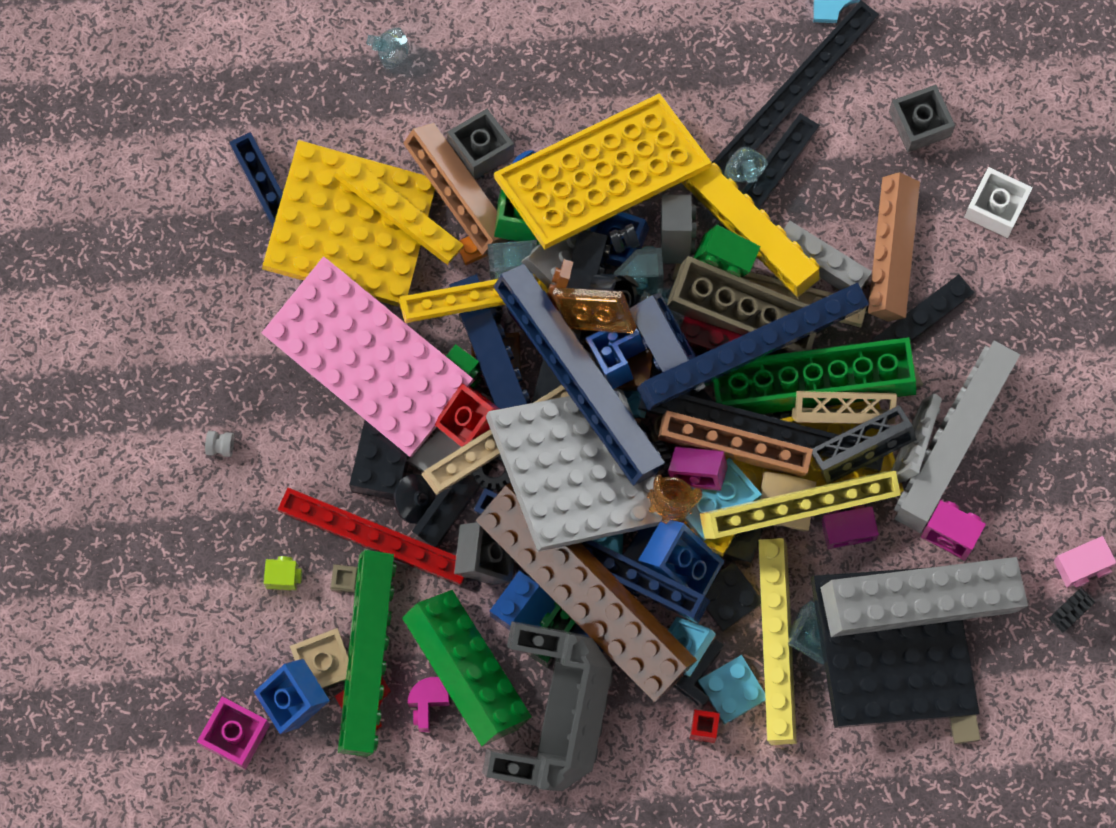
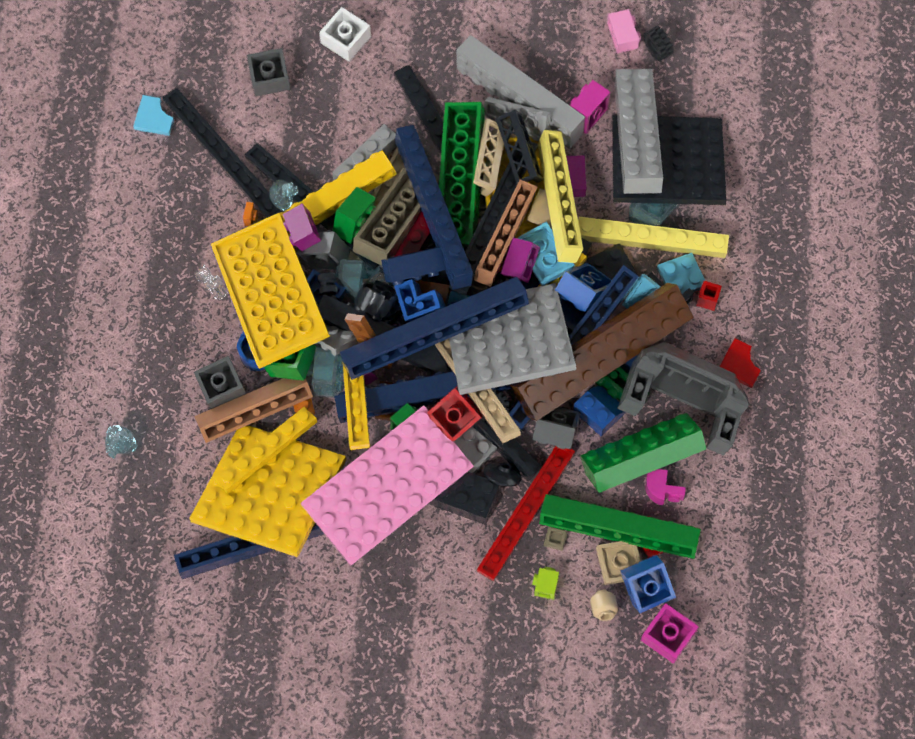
camera: 80 degrees left, 5 degrees down
(220, 444) = (431, 617): light grey wheel -> none
(262, 648) = (604, 605): none -> tan head
(594, 310) = (388, 305): clear orange tile -> none
(612, 103) = (212, 283): none -> clear plate
(618, 779) = (739, 362): none -> red tile
(673, 498) = (544, 276): clear orange hair -> none
(692, 191) = (301, 227): none -> brick
(717, 135) = (250, 214): none -> orange plate
(894, 247) = (363, 107): nougat brick -> none
(964, 729) = (731, 130): dark tan tile -> none

